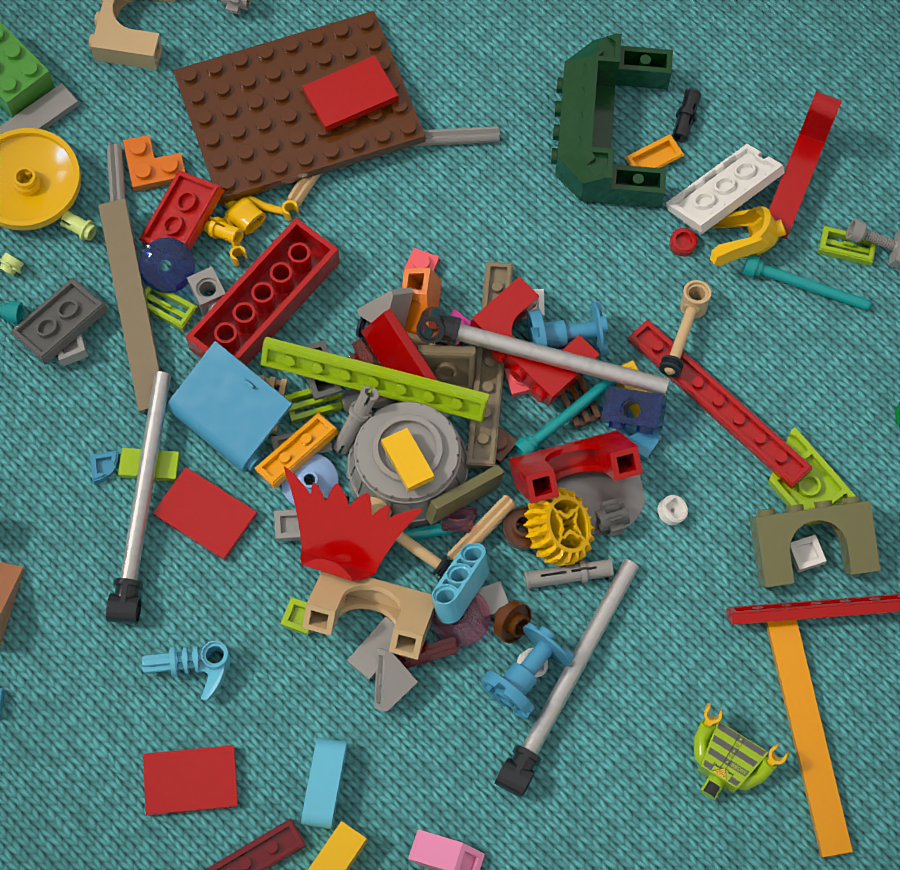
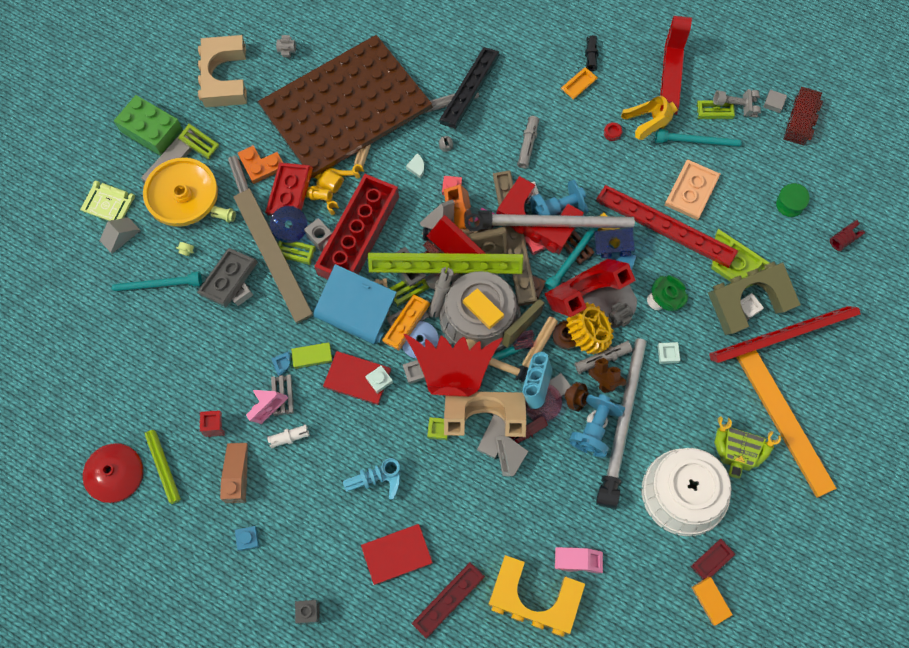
camera: 10 degrees left, 0 degrees up
(42, 828) = (307, 612): none -> dark grey brick
(61, 114) = (210, 150): none -> lime tile
(67, 519) = (268, 403): none -> bright pink slope
(84, 573) = (288, 436): none -> white pin
(95, 488) = (281, 379): none -> light grey tile
(125, 604) = (321, 448): flat silver piece -> none
(234, 523) = (379, 379): none -> light aqua plate
(324, 783) = (485, 533): medium azure beam -> none
(350, 93) = (377, 88): red tile -> none
(377, 223) = (416, 166): none -> light aqua tile
(436, 199) = (442, 146): none -> light grey hinge
(487, 124) = (469, 88): none -> black tile
(557, 218) = (530, 135): none -> light grey pin
(563, 602) = (607, 377): none -> reddish brown hips
(586, 122) = (530, 73): dark green wedge -> none
(617, 823) = (677, 506): none -> white piece
(666, 592) = (668, 353): none -> light aqua plate
(671, 364) = (631, 169): tan piece -> none
(693, 504) = (669, 293): none -> green tile
(724, 188) = (629, 92): white piece -> none
(775, 358) = (692, 189): none -> light nougat tile

